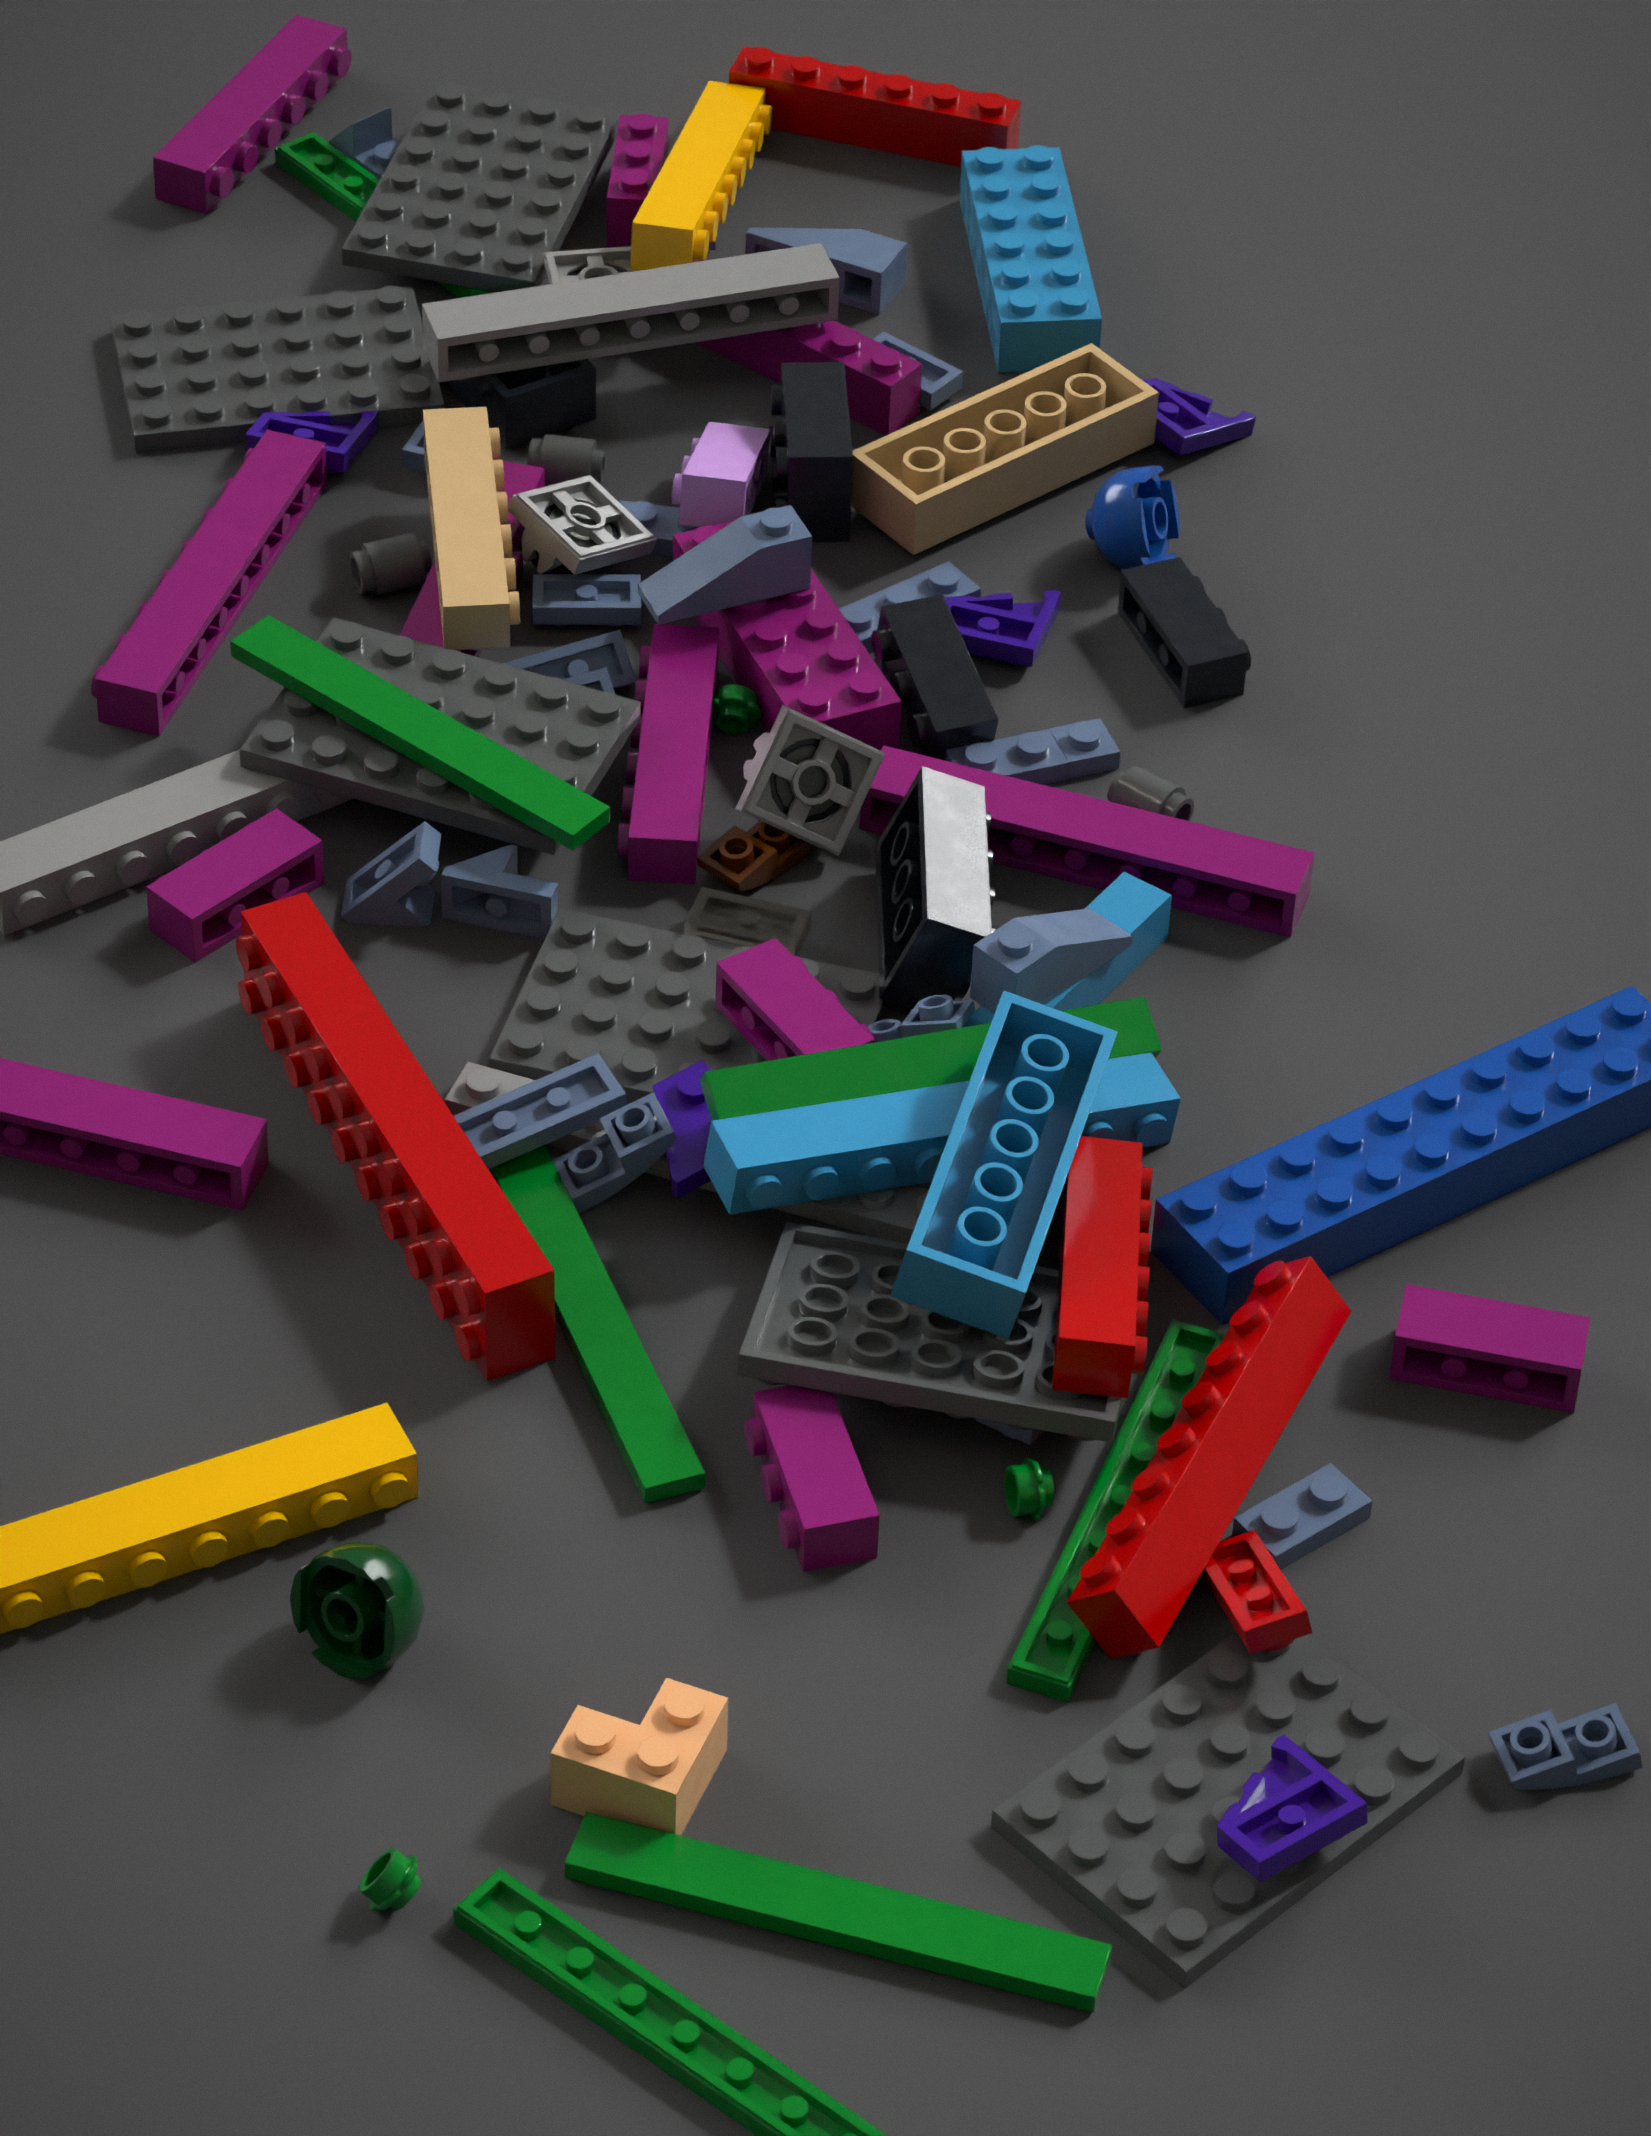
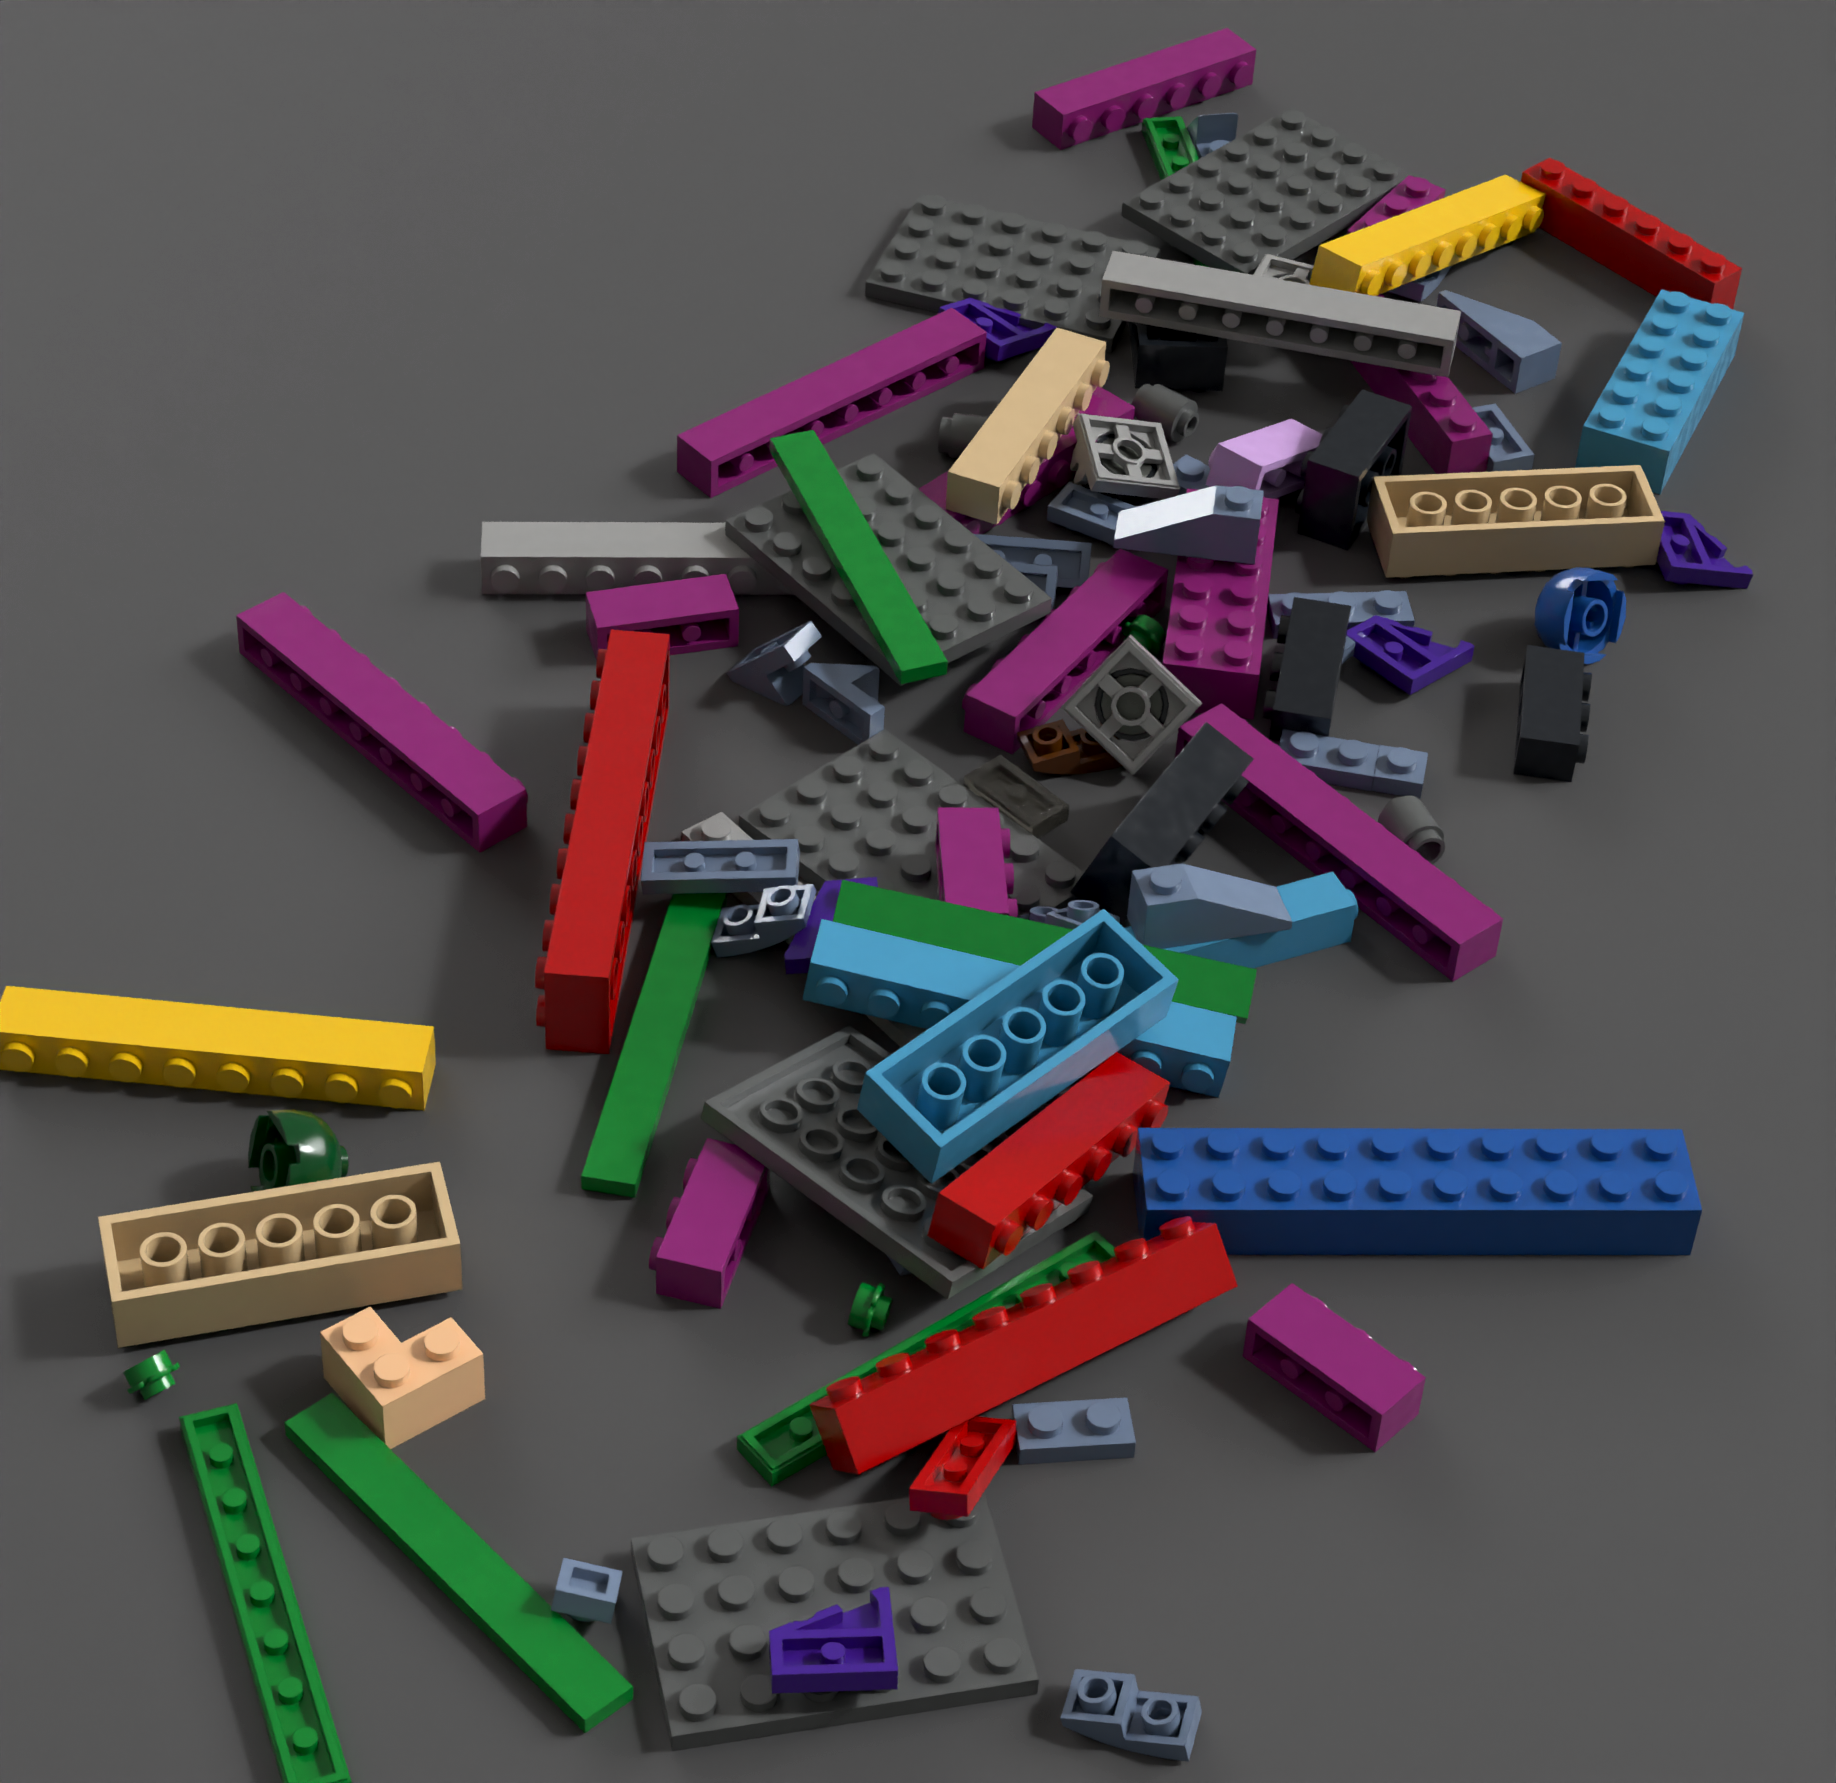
camera: 30 degrees right, 0 degrees up
(424, 1700) = (280, 1253): none -> tan brick
(996, 1878) = (586, 1591): none -> sand blue plate

